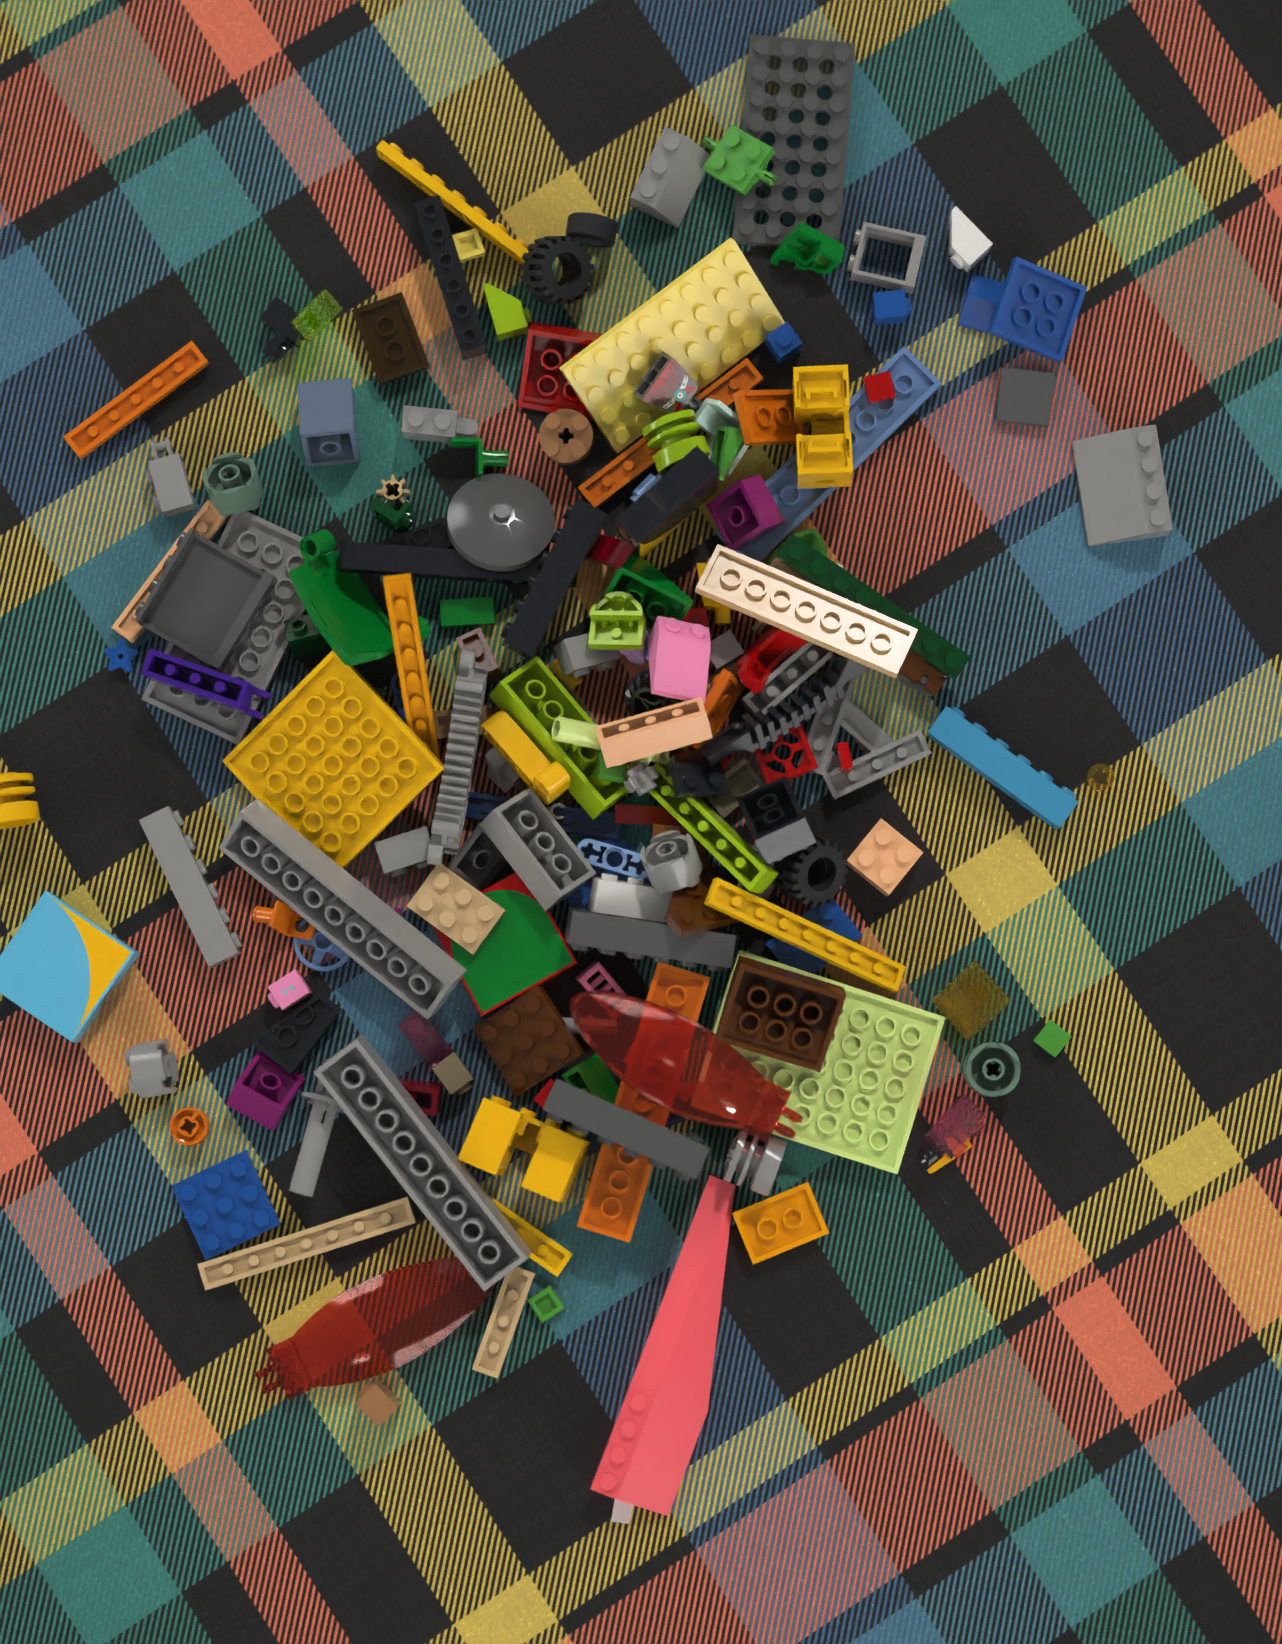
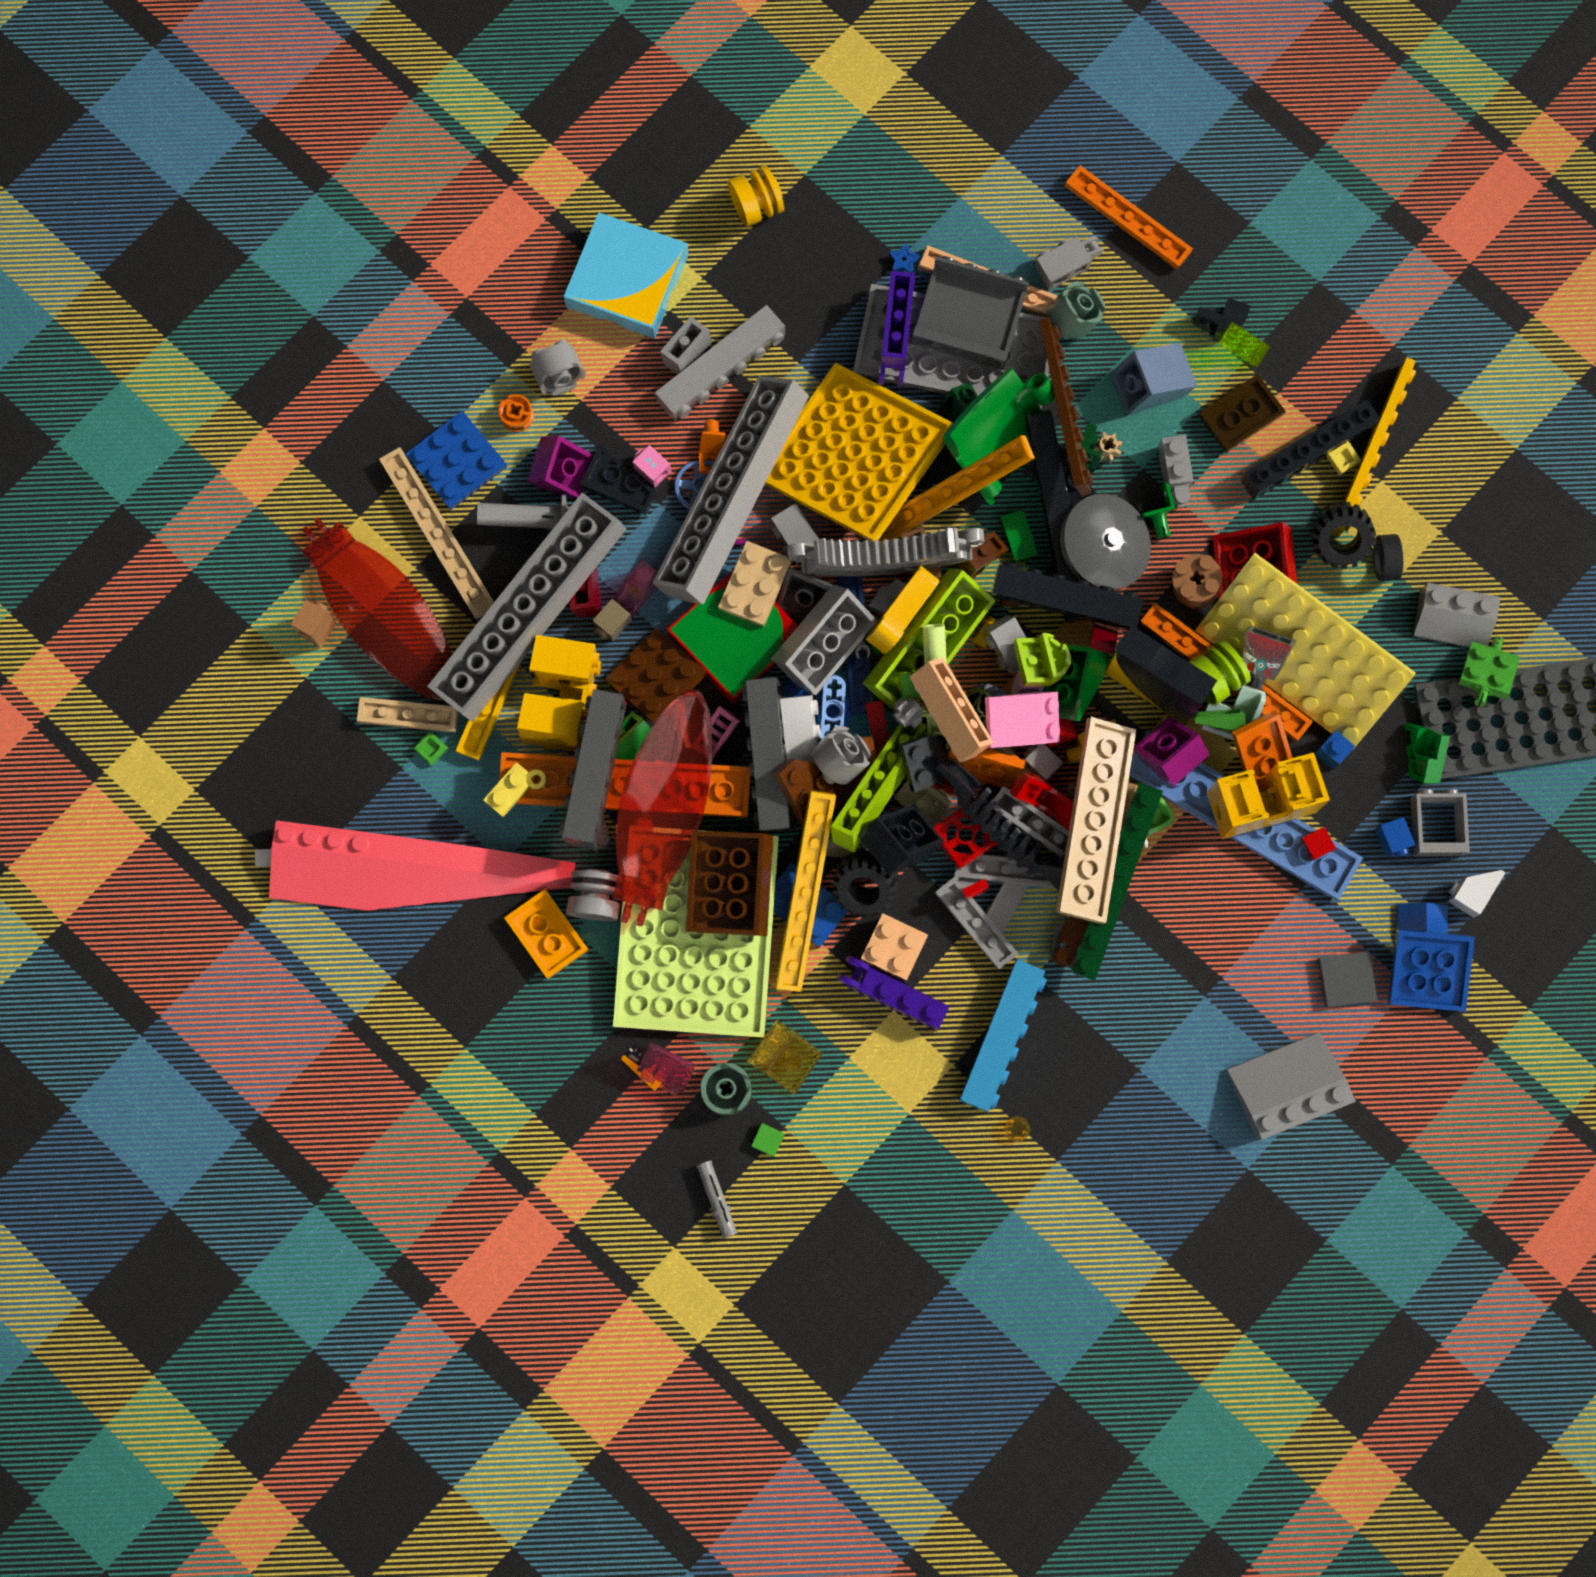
camera: 75 degrees right, 5 degrees down
(163, 920) = (686, 345): none -> light grey brick
(353, 524) = (1067, 412): none -> reddish brown plate
(506, 313) = (1292, 503): lime slope -> none
(620, 1222) = (512, 788): none -> light yellow hinge
(934, 867) = (894, 994): none -> dark purple hinge
(1105, 1106) = (717, 1200): none -> light grey pin

